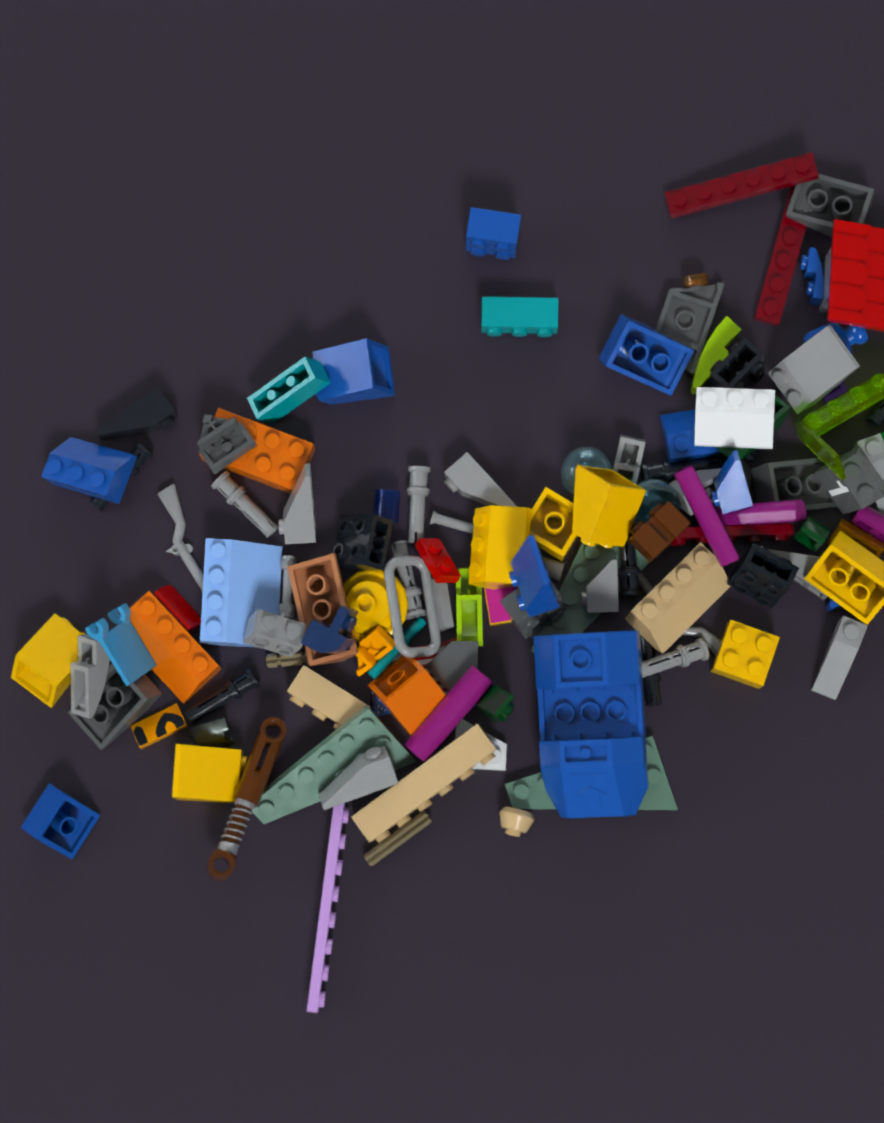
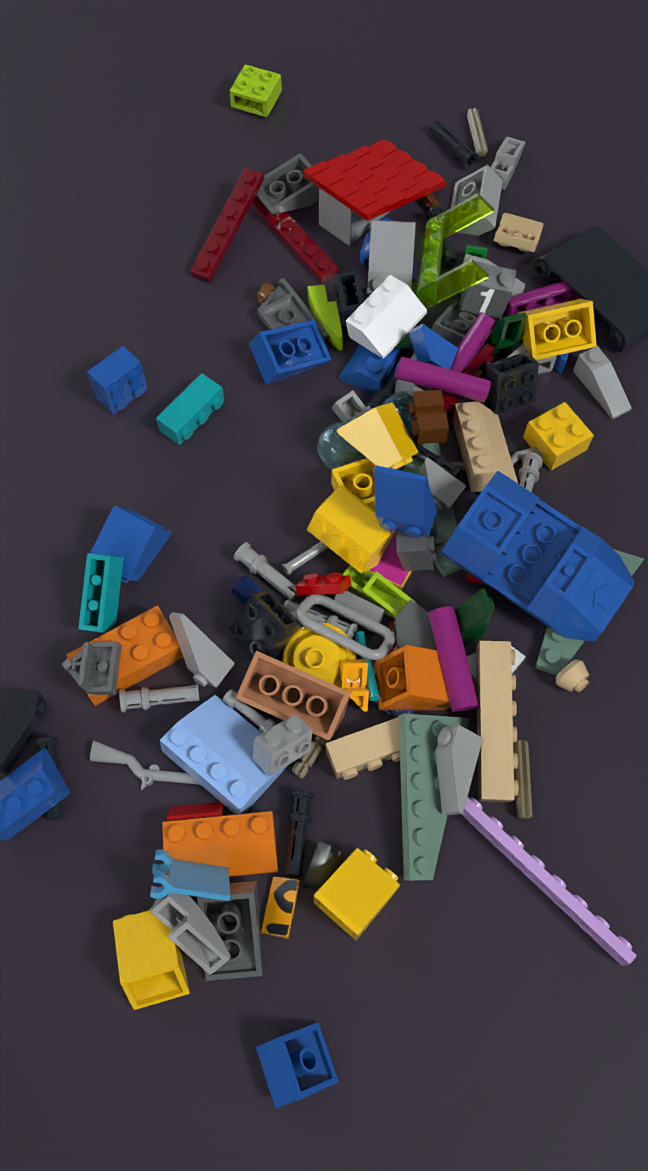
camera: 55 degrees left, 15 degrees down
(247, 796) = (404, 872): reddish brown piece -> none
(332, 638) = (325, 701): dark blue brick -> none
(474, 483) = (285, 521): light grey slope -> none
(813, 270) = (322, 226): blue slope -> none

